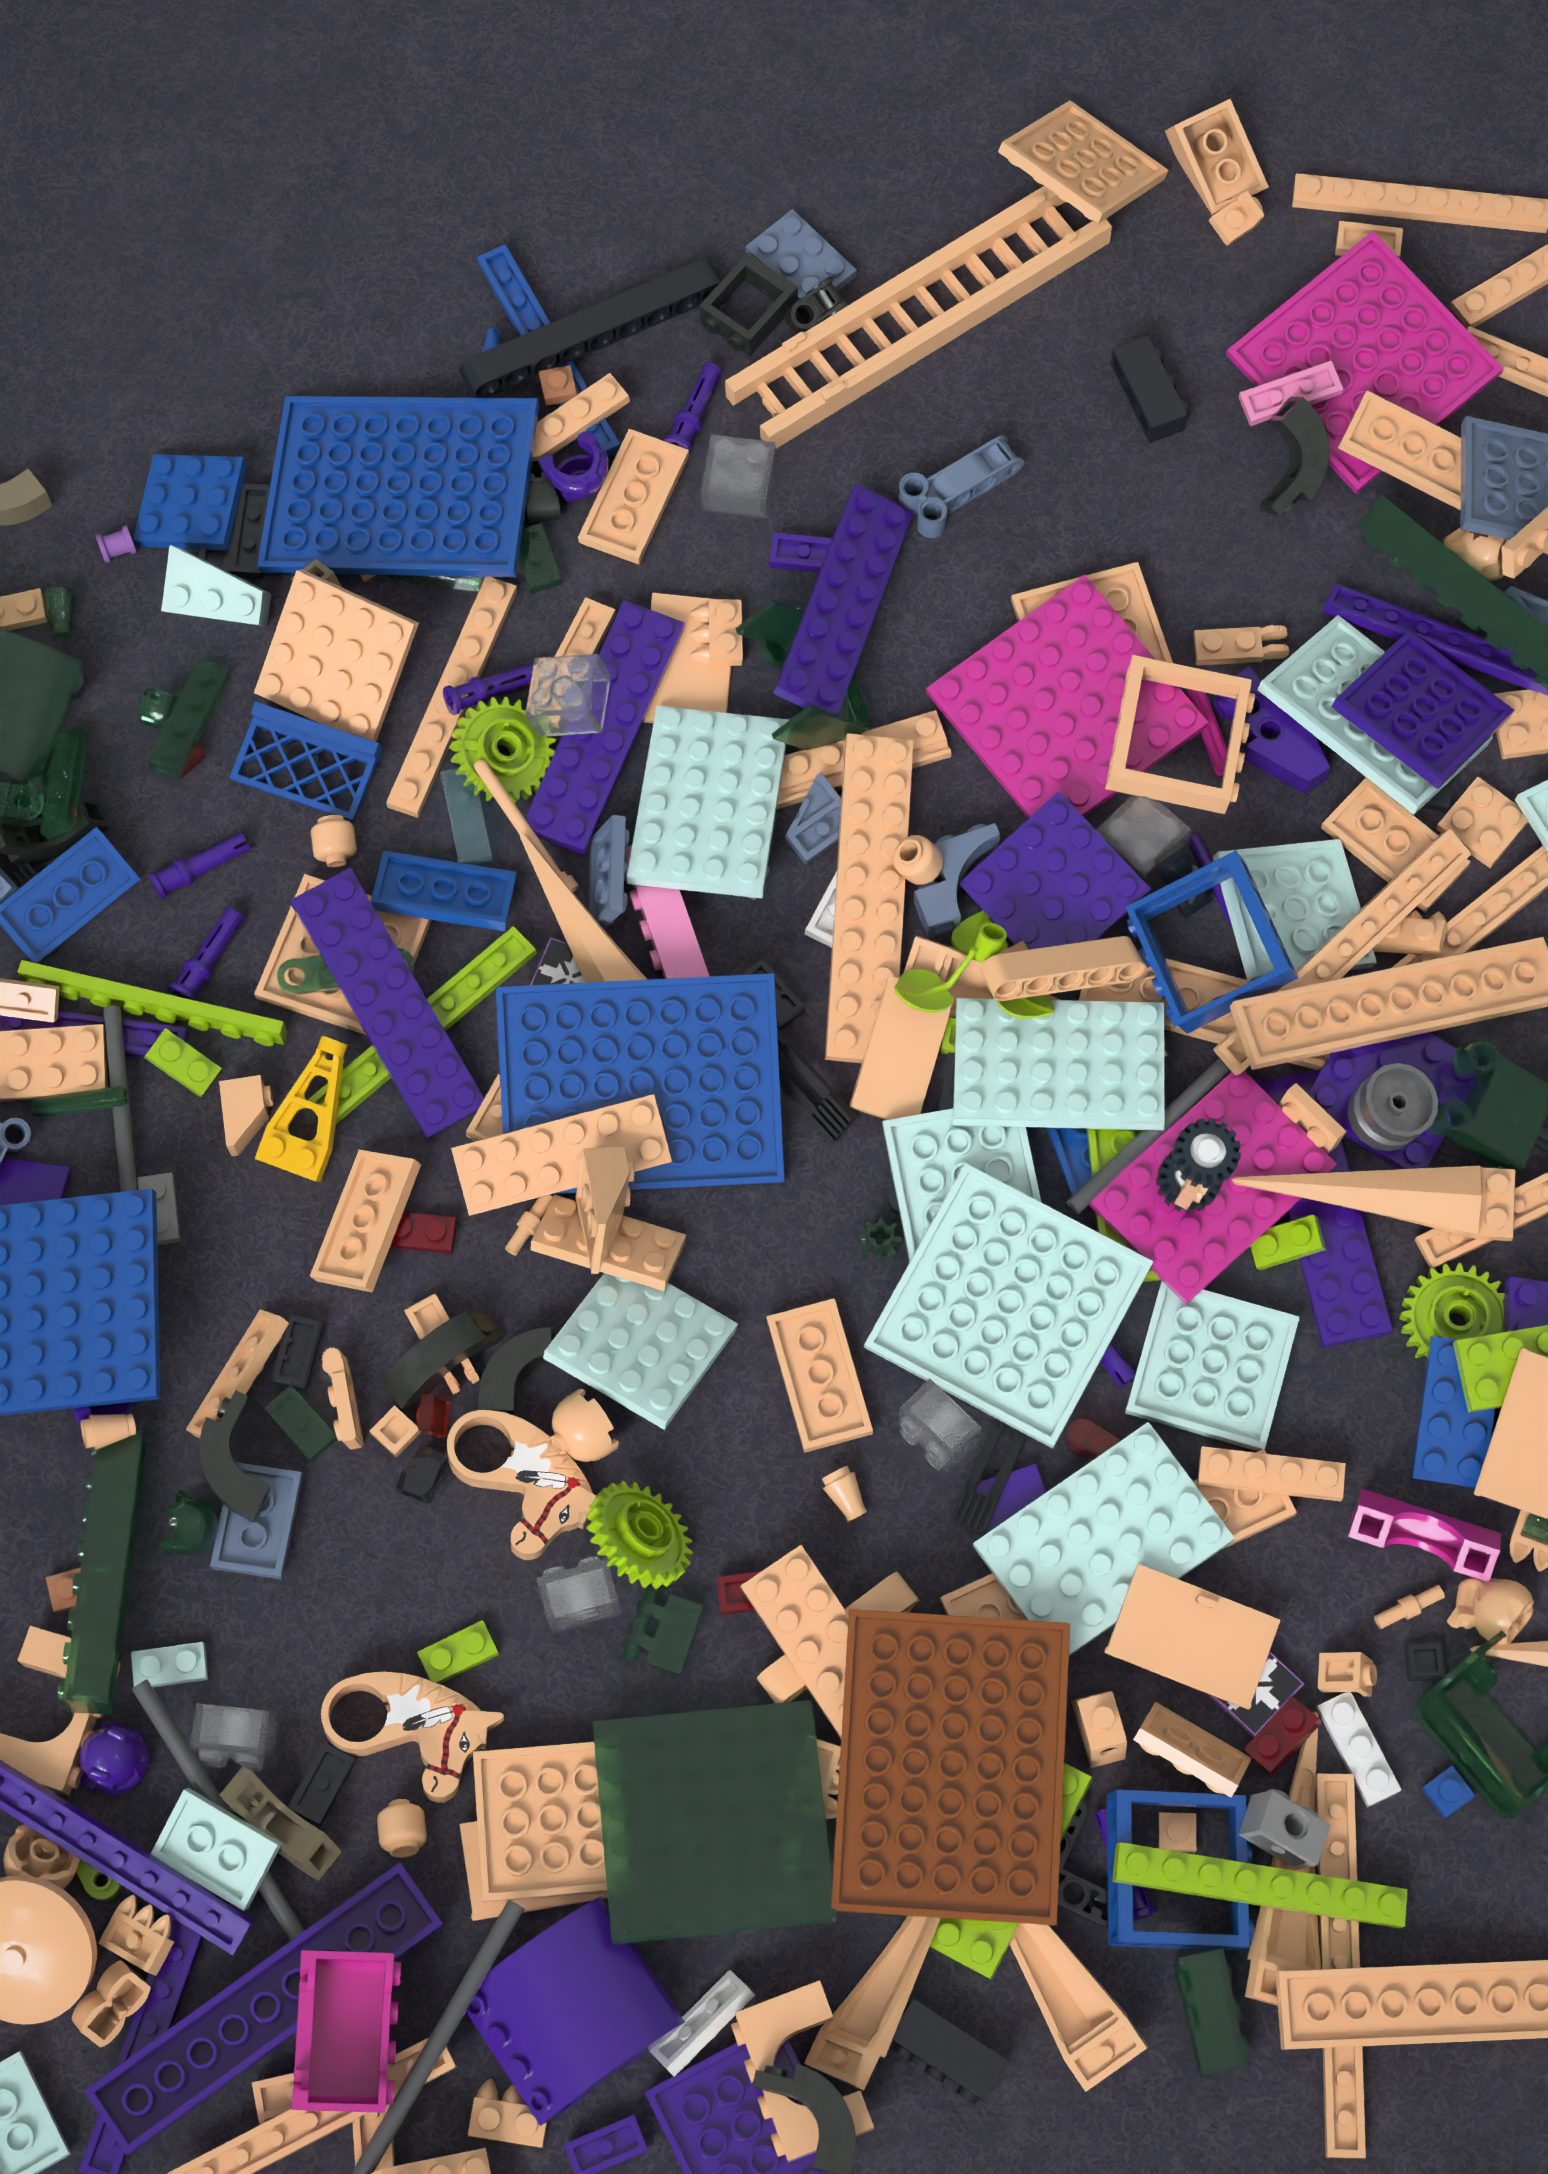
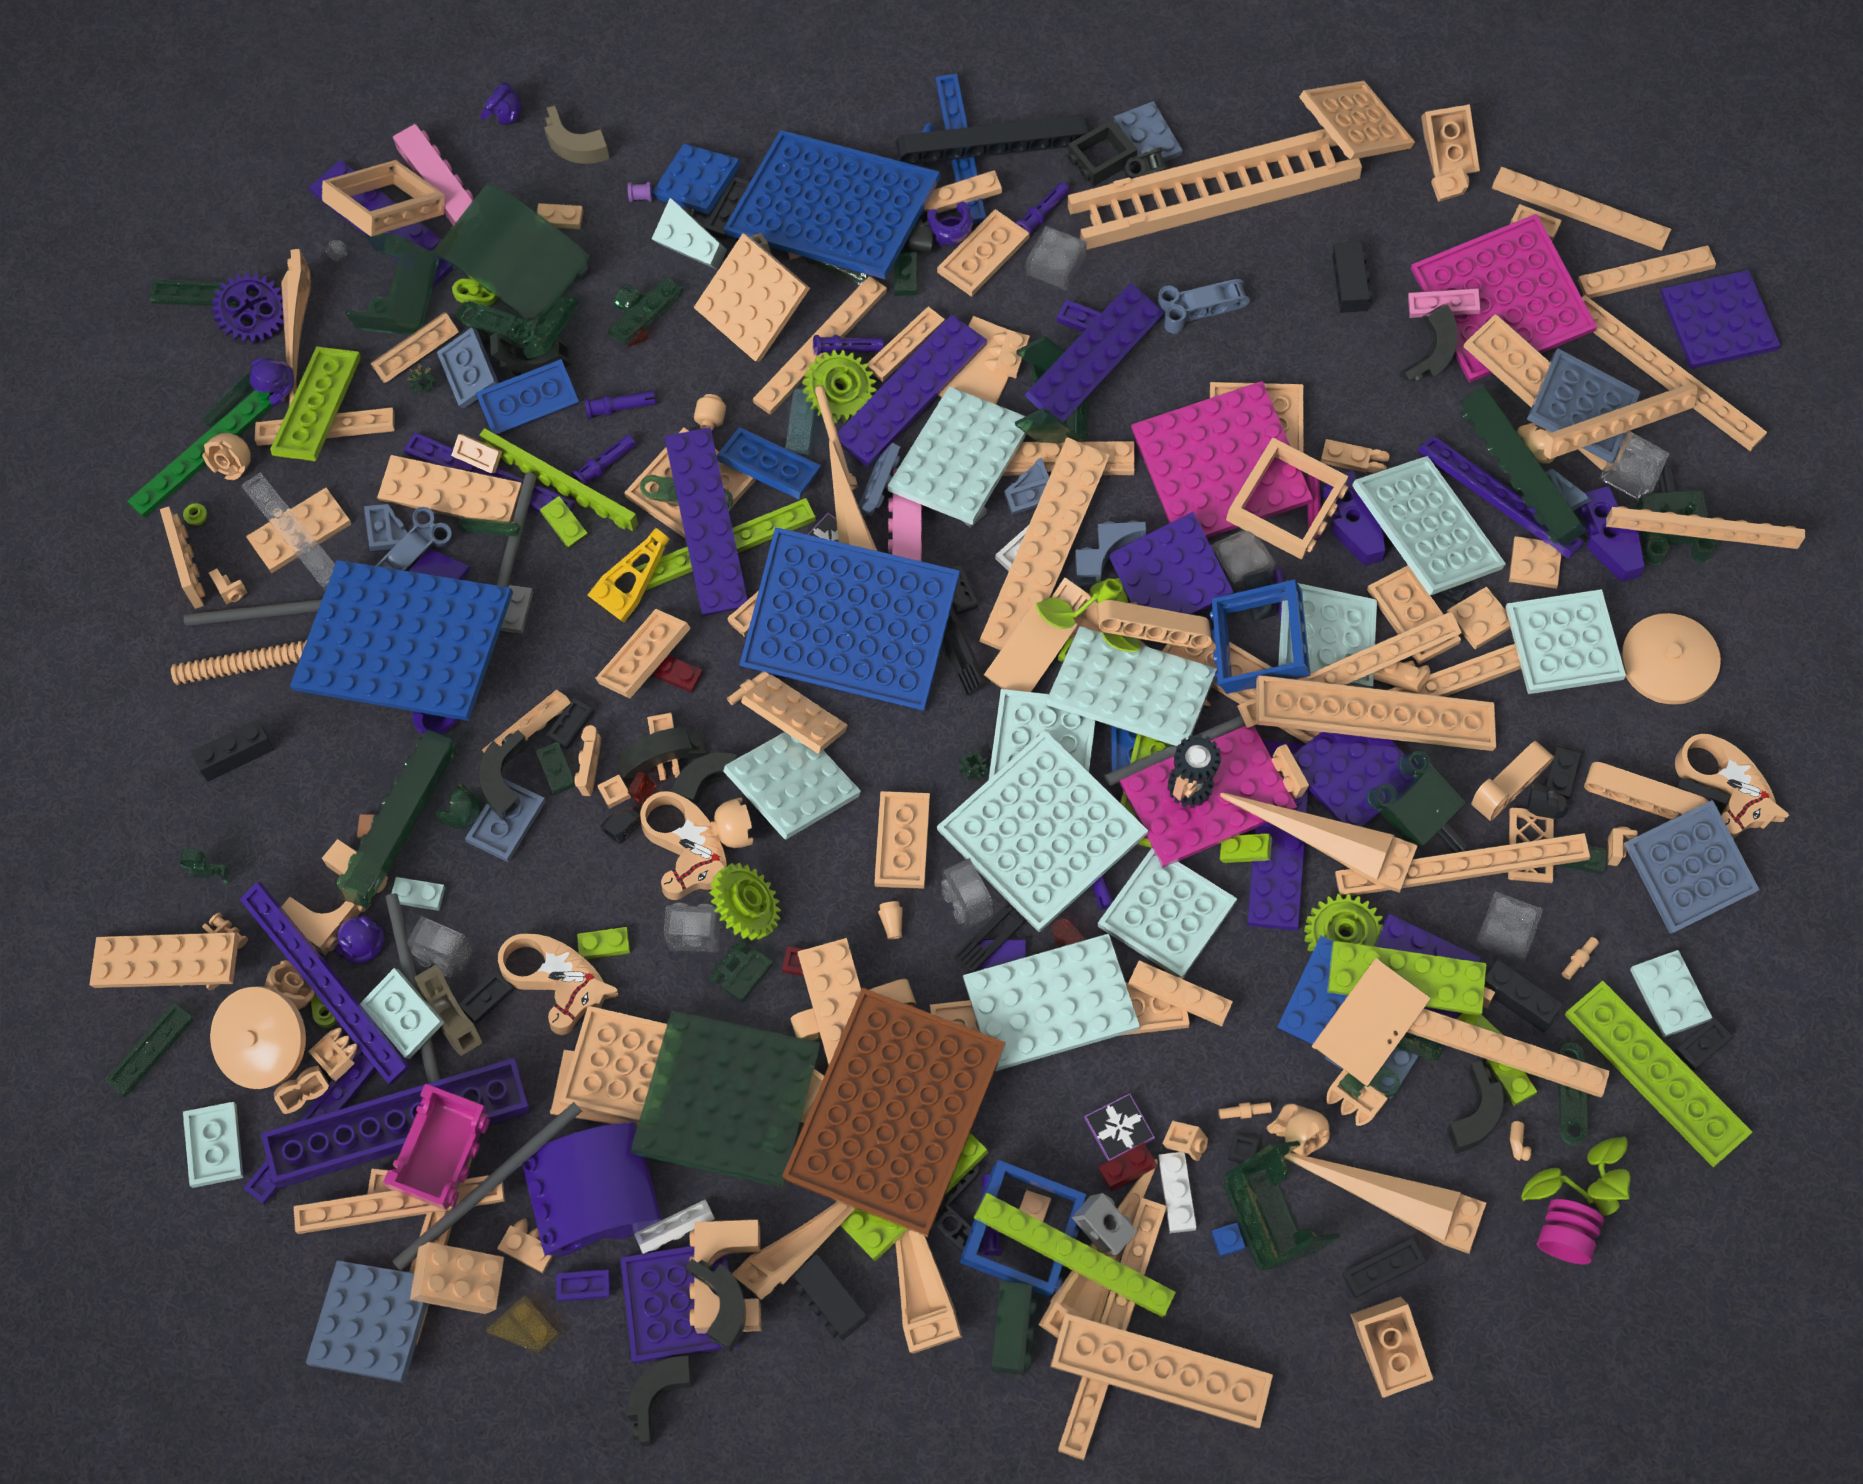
camera: 20 degrees right, 5 degrees down
(60, 609) = (590, 221): clear green cone -> none
(106, 1429) = (428, 730): light nougat cone -> none
(244, 1110) = (591, 563): light nougat slope -> none
(316, 735) = (720, 342): blue fence -> none
(401, 1828) = (526, 1040): light nougat head -> none
(549, 1154) = (783, 648): light nougat plate -> none
(557, 385) = (958, 169): nougat plate -> none
(568, 695) = (891, 361): clear brick -> none
(602, 1198) = (798, 682): light nougat slope -> none
(918, 859) = (1084, 530): light nougat head -> none
(1100, 1728) = (1005, 1121): light nougat torso -> none
(1192, 1750) = (1061, 1154): light nougat plate -> none
(1200, 1644) = (1086, 1084): light nougat container -> none
(1392, 1107) = (1345, 778): flat silver wheel -> none
(1422, 709) = (1461, 530): dark purple plate -> none
(1459, 1543) = (1252, 1050): dark pink arch -> none

